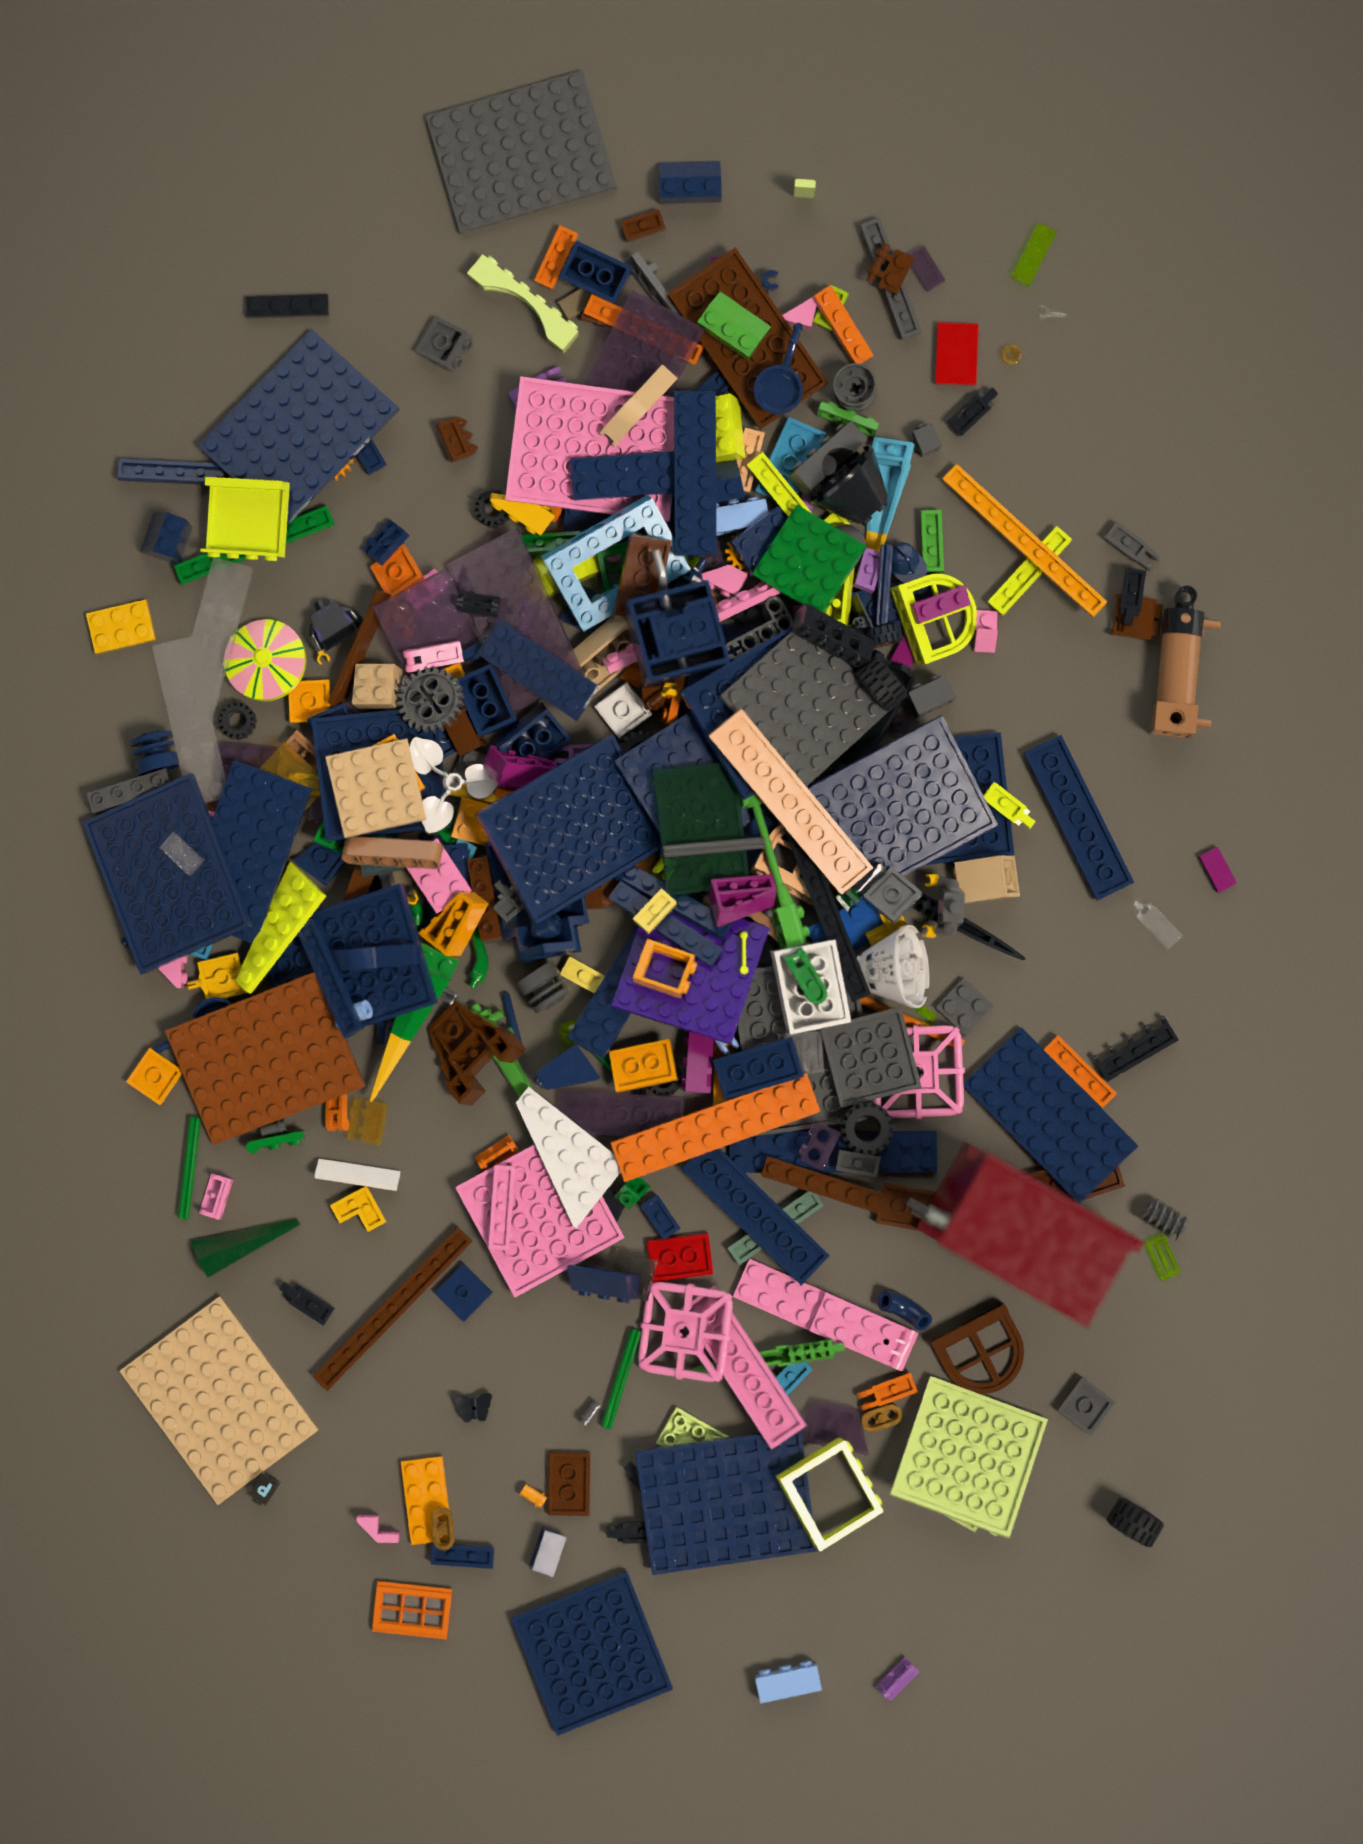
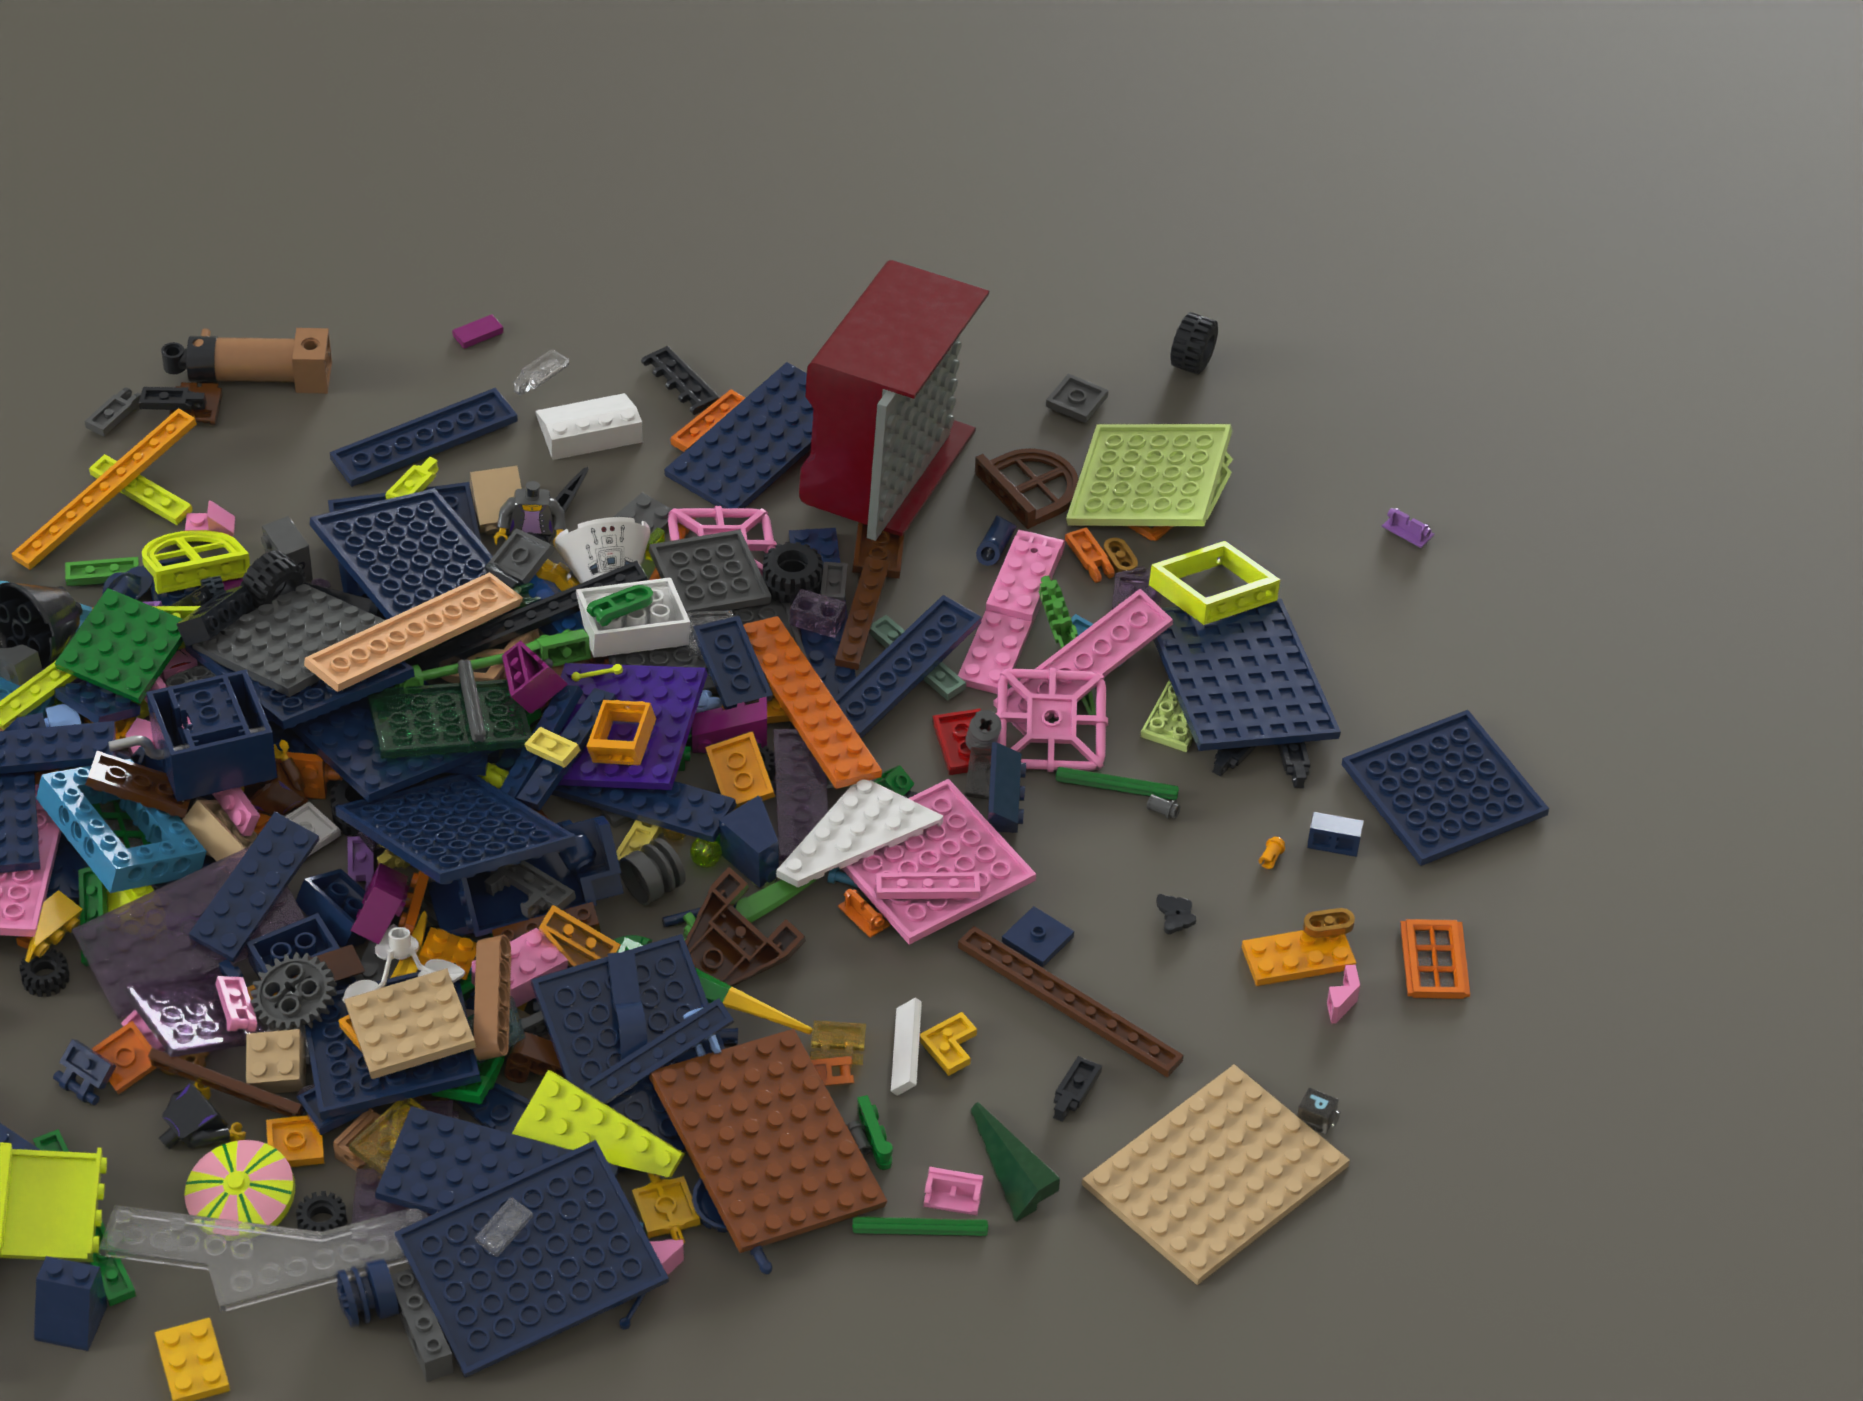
camera: 100 degrees left, 40 degrees down
(155, 1076) = (803, 1270): light orange plate -> none
(463, 1556) = (1357, 900): dark blue plate -> none
(478, 604) = (169, 956): black hinge -> none
(569, 1483) = (1249, 823): reddish brown tile -> none
(660, 1217) = (921, 756): dark blue plate -> none
(665, 1271) = (983, 730): none -> dark grey piece
(788, 1681) = (1434, 614): light blue brick -> none
(884, 585) = (147, 595): dark blue axle -> none
(940, 604) = (178, 545): magenta plate -> none
(1087, 963) = (590, 426): none -> white slope

